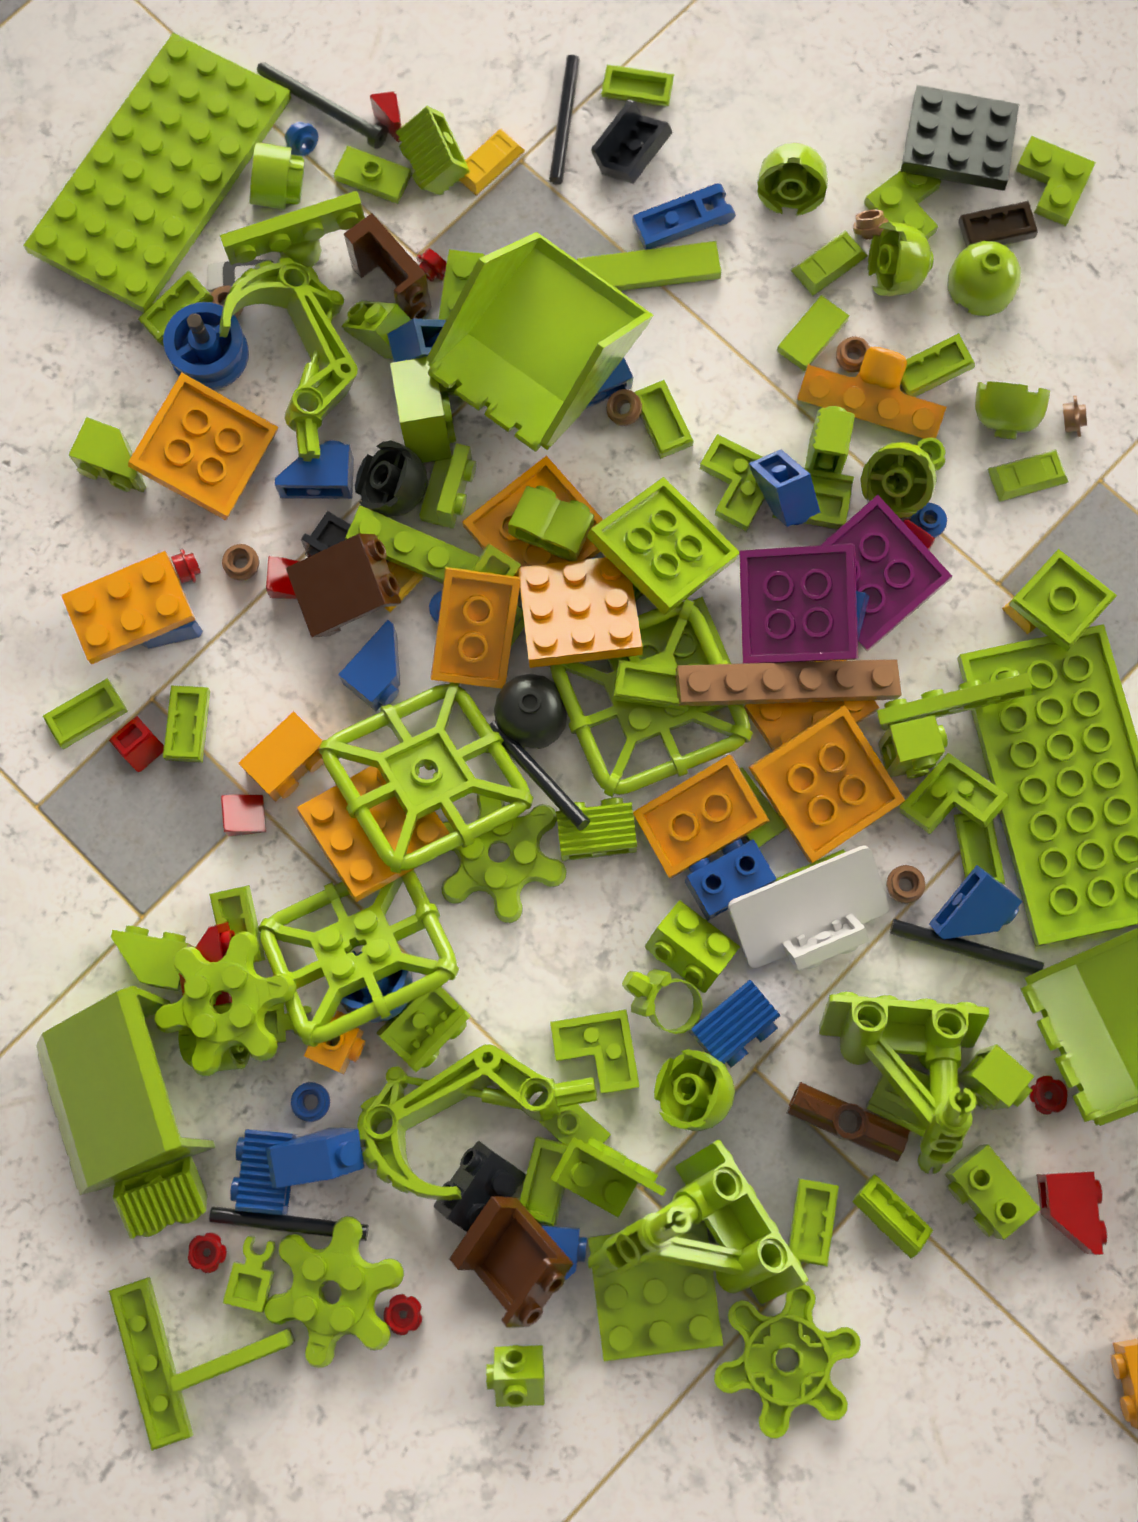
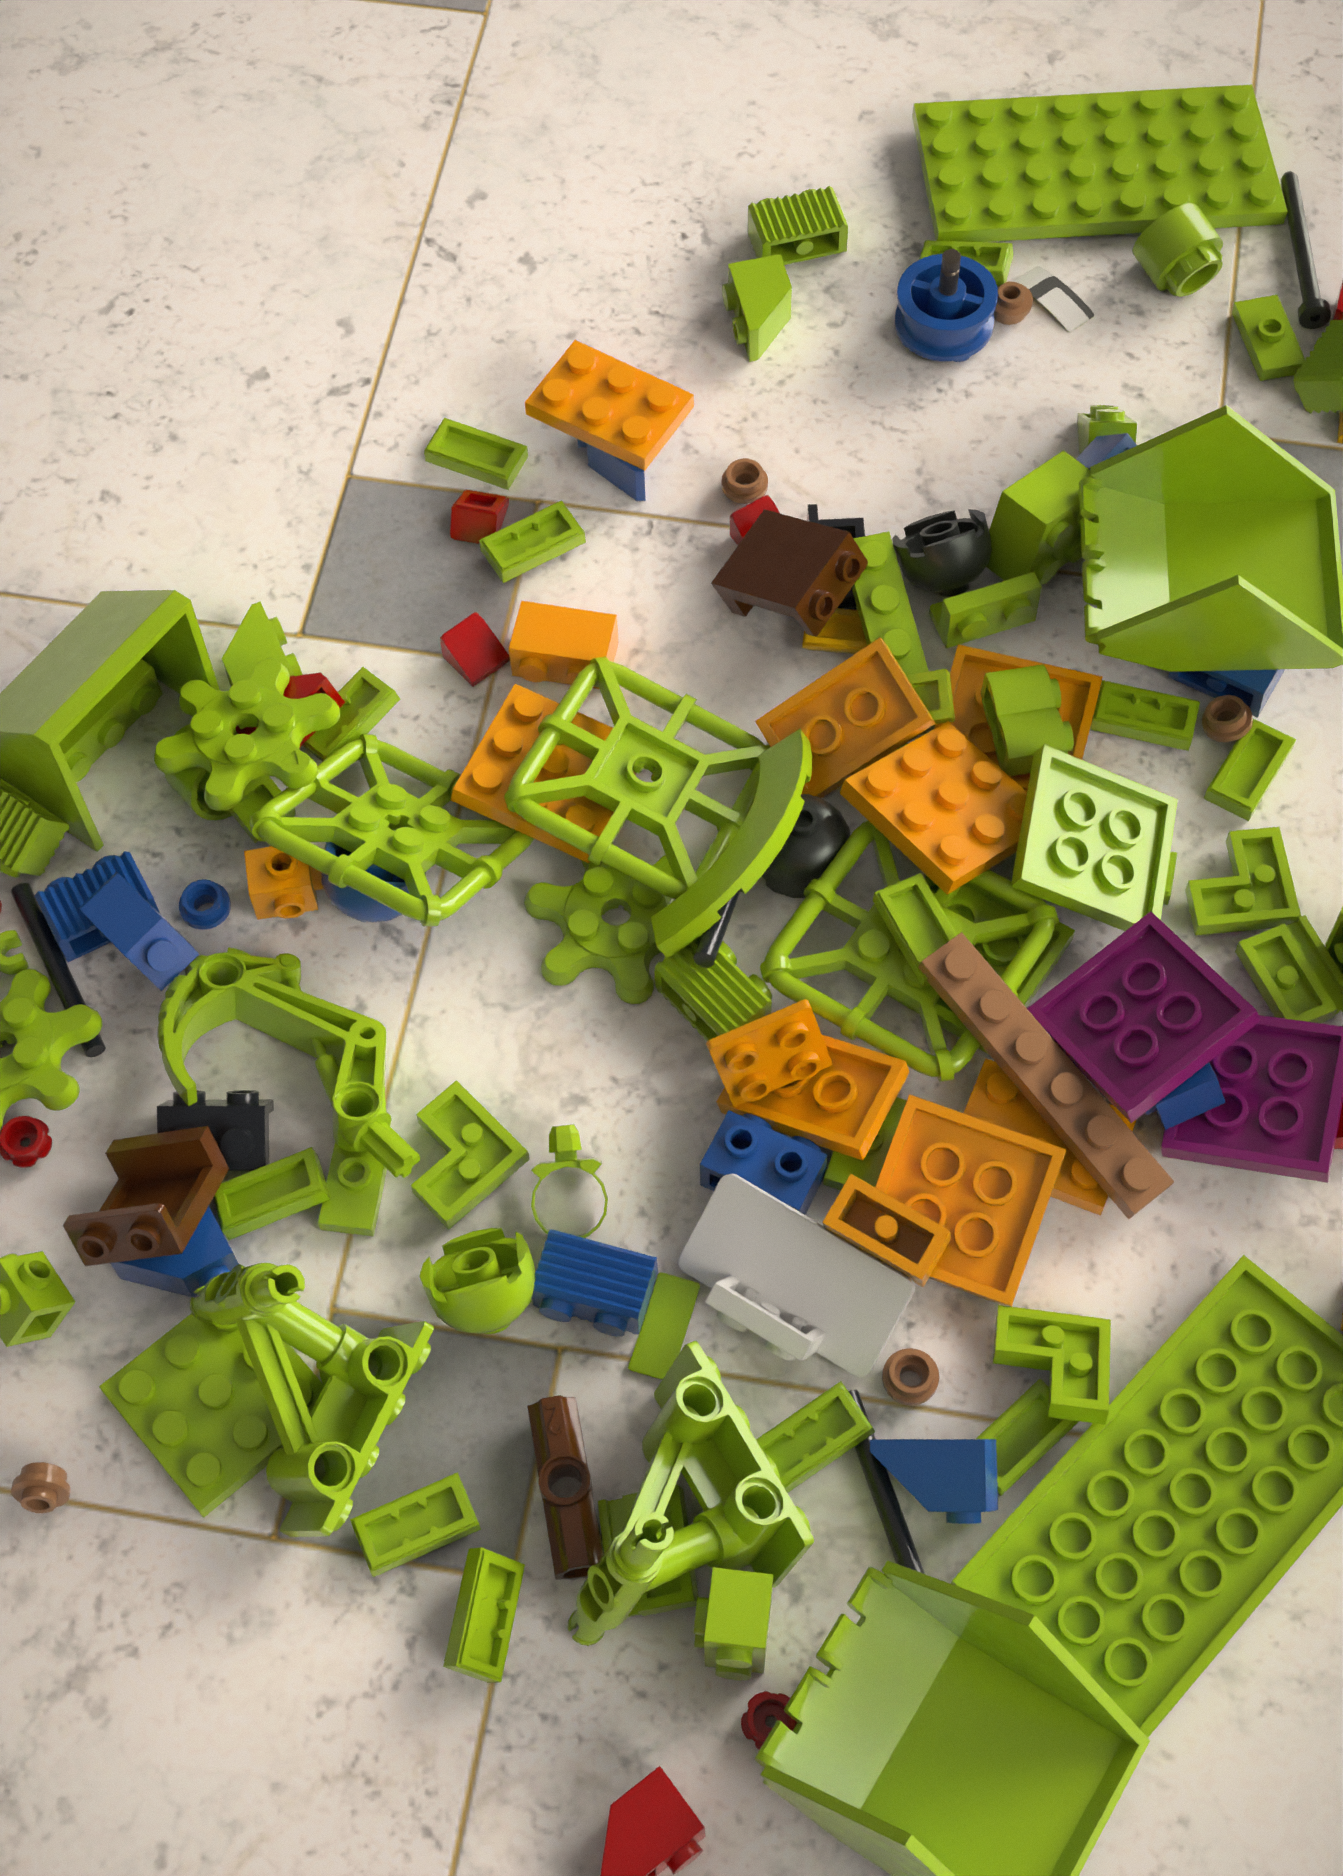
camera: 55 degrees right, 15 degrees down
(64, 389) = (798, 226): none -> lime brick
(185, 566) = (699, 438): red plate -> none
(203, 446) = (836, 368): light orange plate -> none
(294, 233) = (1133, 296): lime plate -> none
(301, 138) = (1247, 242): blue plate -> none
(311, 309) = (988, 426): lime piece -> none
(321, 478) = (896, 485): blue slope -> none
(372, 247) = (1174, 381): reddish brown panel -> none
(375, 669) = (730, 667): blue slope -> none
(424, 1028) = (366, 955): lime bracket -> none
(530, 743) = (750, 853): none -> lime tile
(588, 449) = (1145, 715): none -> lime plate
(602, 1175) = (309, 1235): lime bracket -> none
(647, 1433) = (41, 1487): none -> medium nougat plate
(668, 827) = (769, 1053): none -> light orange bracket
(691, 946) = (655, 1179): lime bracket -> none
(785, 488) = (1272, 928): blue slope -> none
(794, 1014) = (664, 1325): none -> lime sticker
(804, 1384) = (193, 1573): lime plate -> none
(829, 839) = (887, 1229): none -> light orange brick
(908, 962) = (815, 1436): none -> lime plate
(913, 747) = (1079, 1263): lime brick -> none
(970, 696) = (1191, 1288): lime plate -> none
(991, 1192) = (593, 1719): lime brick -> none

